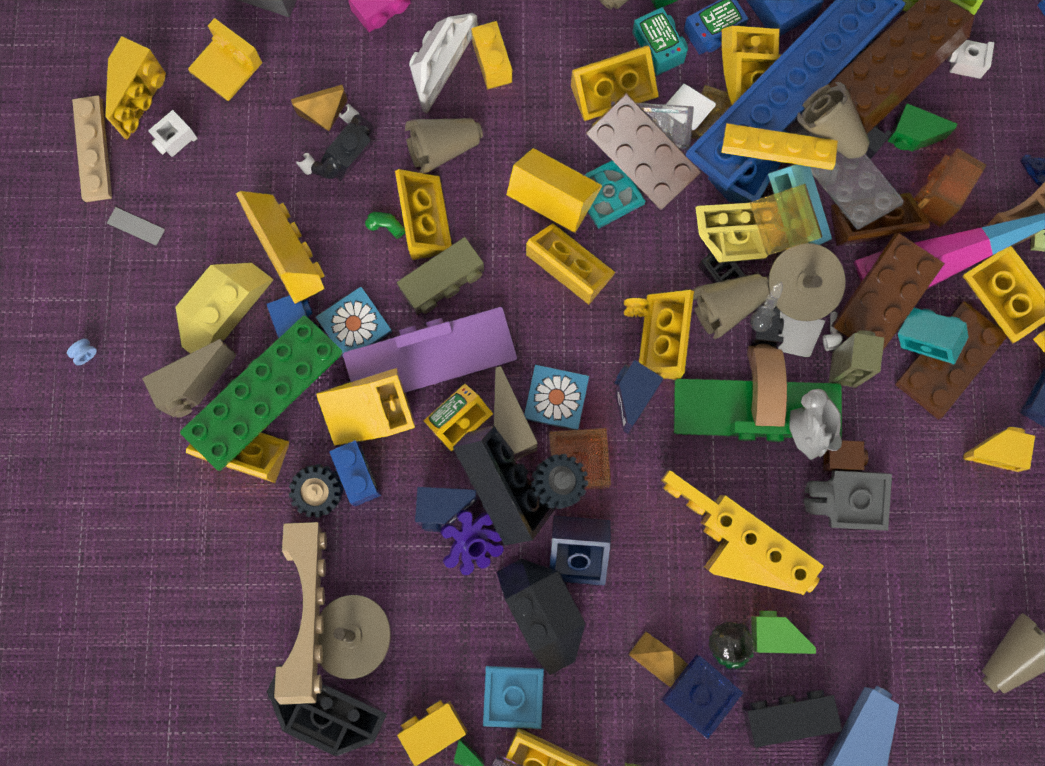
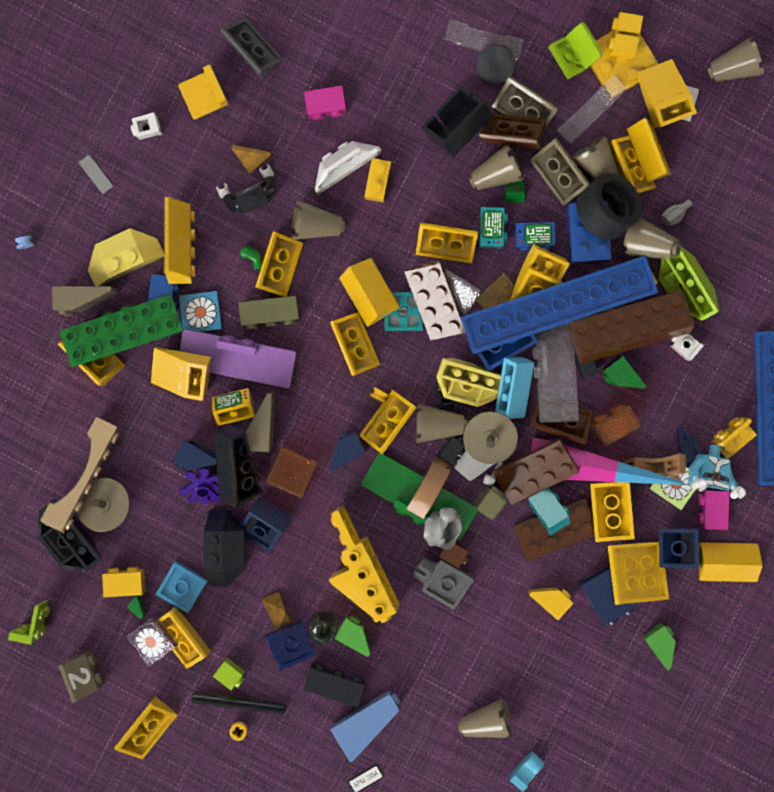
camera: 25 degrees right, 10 degrees up
(92, 149) = (91, 106): tan plate -> none
(131, 84) = (134, 80): yellow slope -> none
(316, 490) = (125, 405): black wheel -> none
(355, 473) = (154, 408): blue brick -> none
(556, 397) = (300, 424): tile -> none
(559, 481) = (269, 481): black wheel -> none
(689, 97) = (486, 281): white sticker -> none
(762, 320) = (449, 446): clear bar -> none
(779, 146) = (518, 346): yellow plate -> none
(786, 219) = (496, 394): clear yellow plate -> none
(833, 116) = (562, 347): dark tan cone -> none

